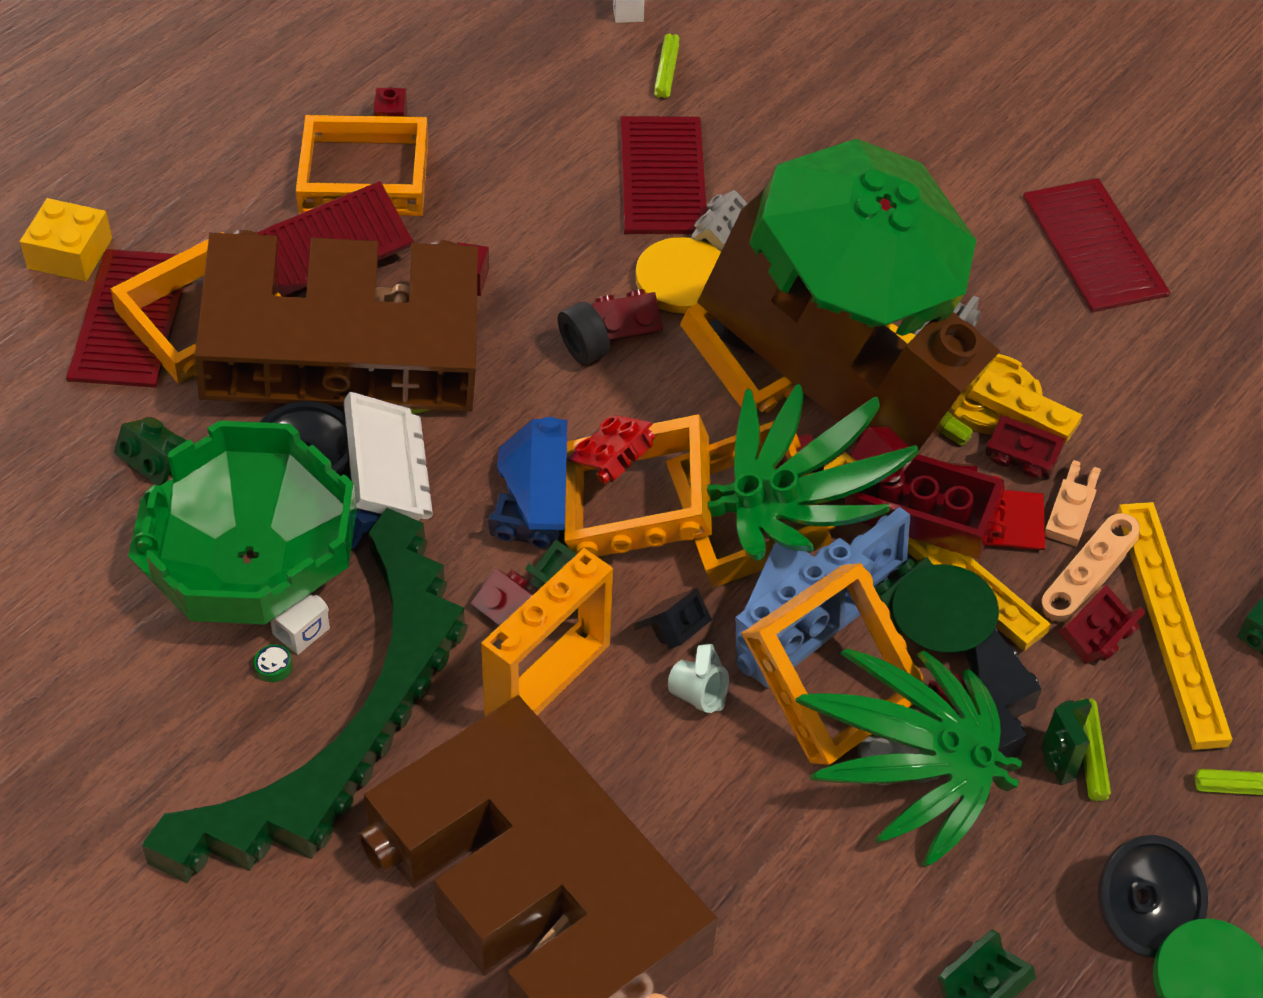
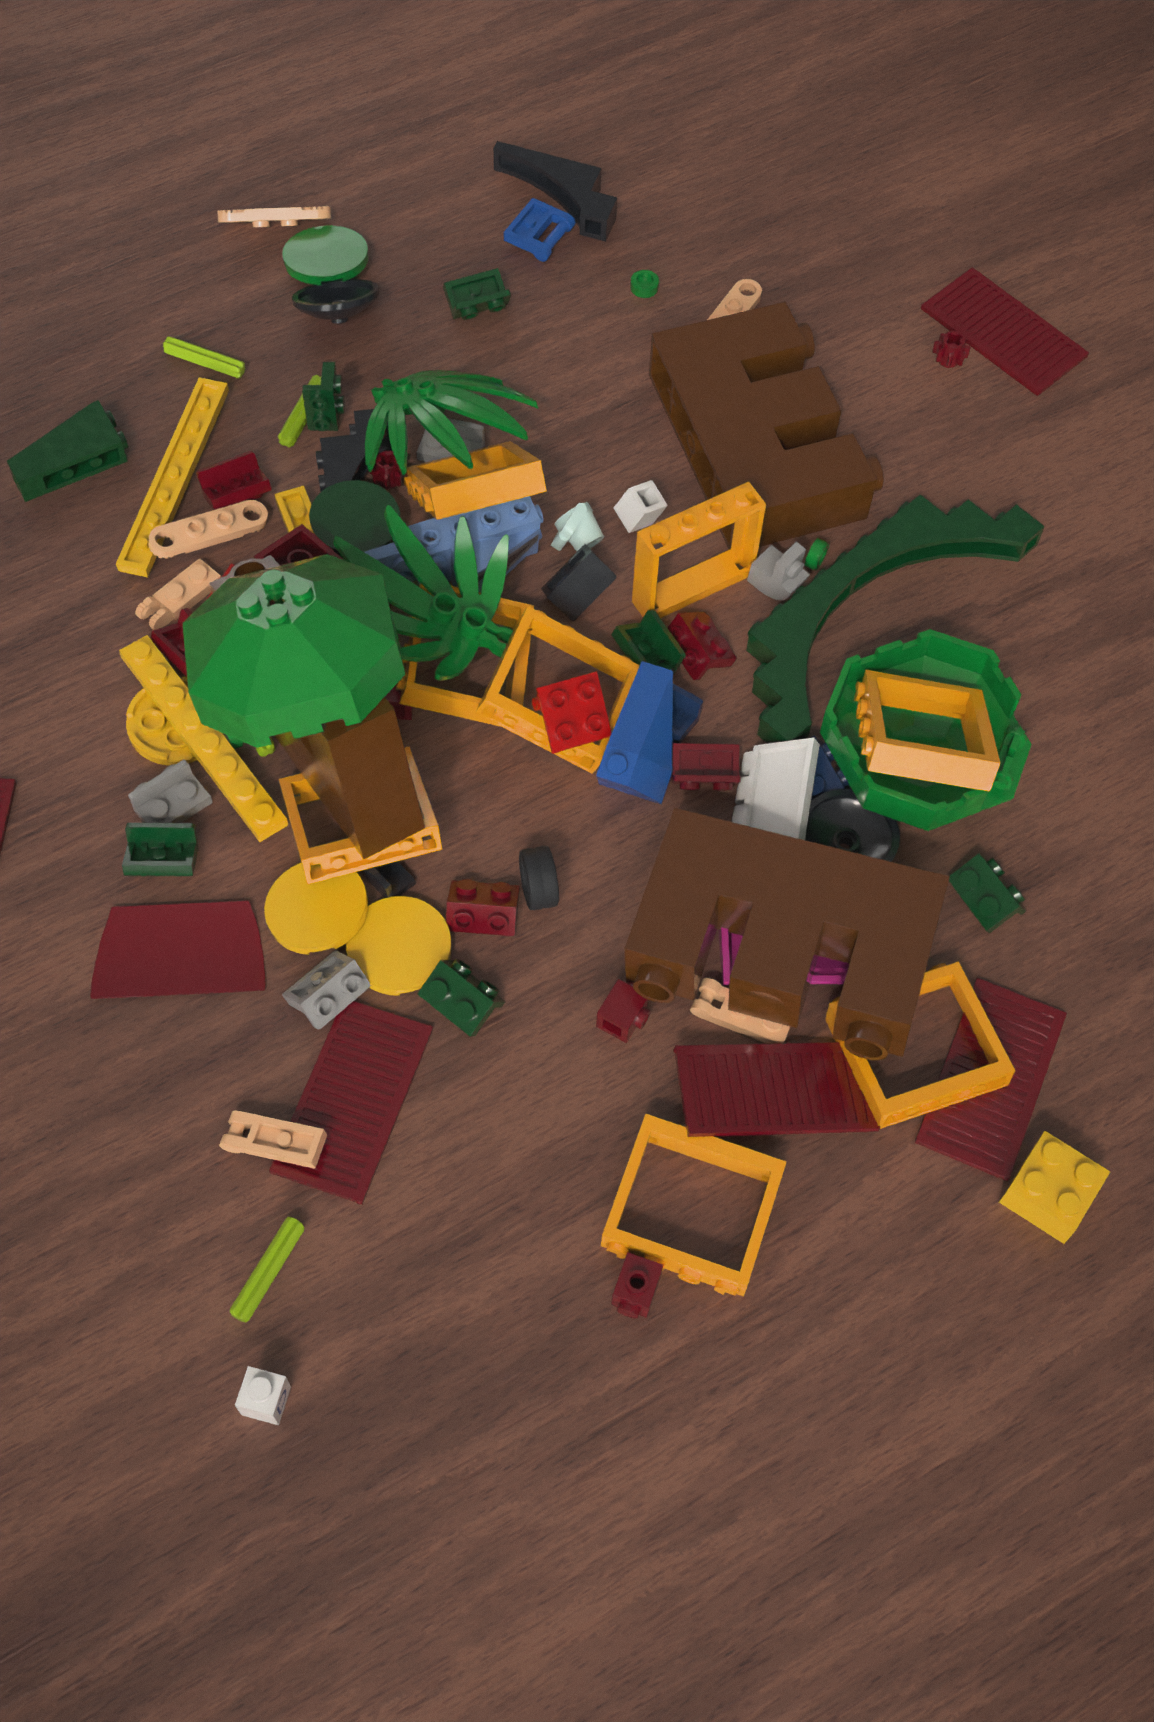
camera: 160 degrees left, 10 degrees up
(309, 497) = (920, 761): none -> light orange window
(416, 743) = (816, 554): none -> green tile
(448, 697) = (778, 573): none -> light grey brick
(464, 476) = (705, 765): none -> dark red bracket
(609, 251) = (460, 995): none -> dark green bracket
(640, 725) = (640, 506): none -> white brick
(706, 123) = (274, 1139): none -> light nougat plate

